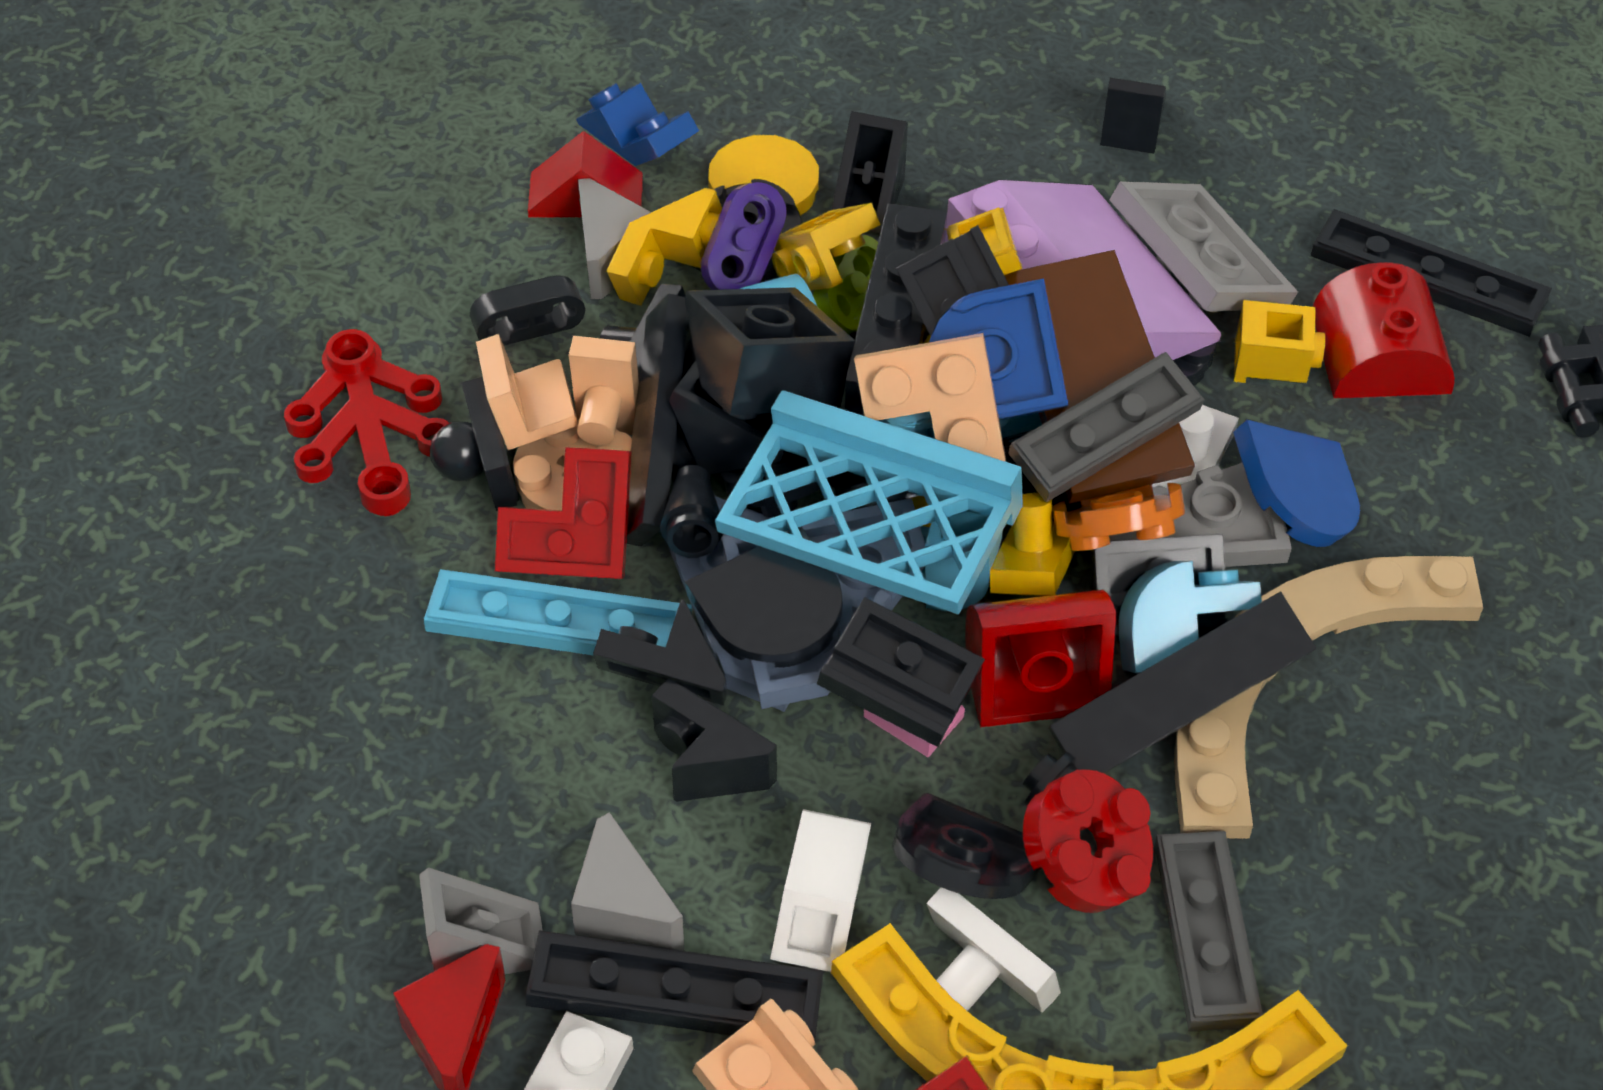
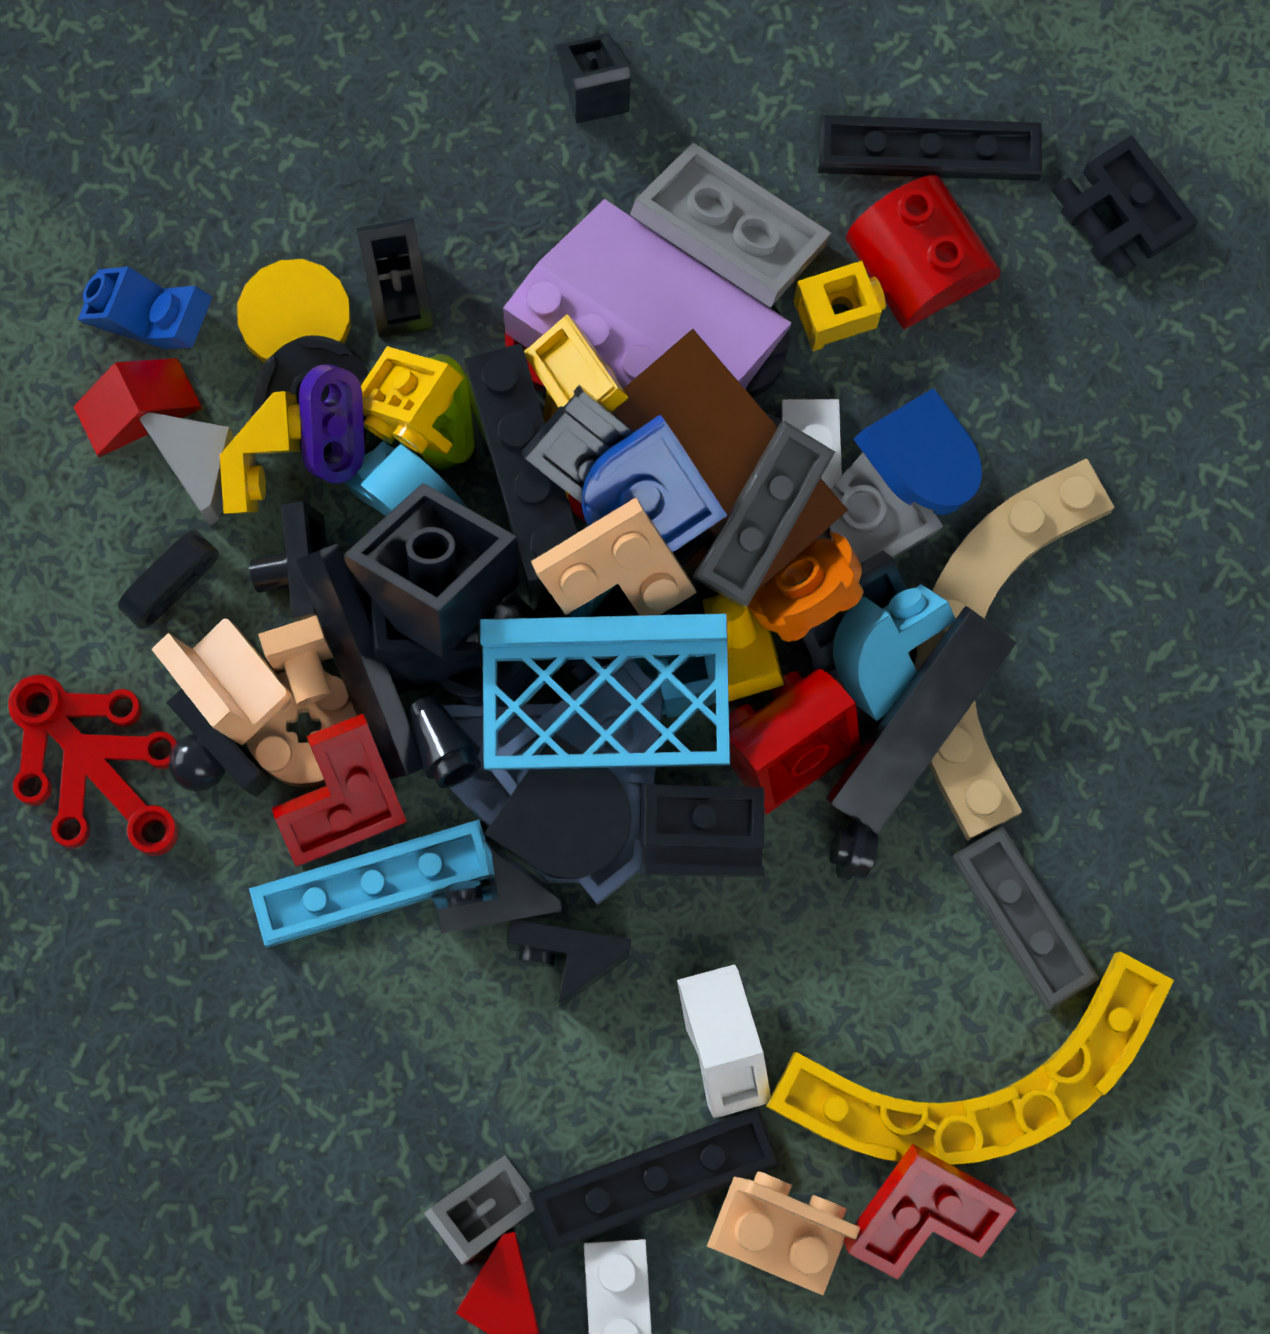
camera: 30 degrees left, 25 degrees up
(621, 896) = (573, 1127): light grey slope -> none
(962, 850) = (818, 953): black tile -> none
(987, 955) = (876, 1036): white tile -> none
(1122, 836) = (938, 893): red plate -> none

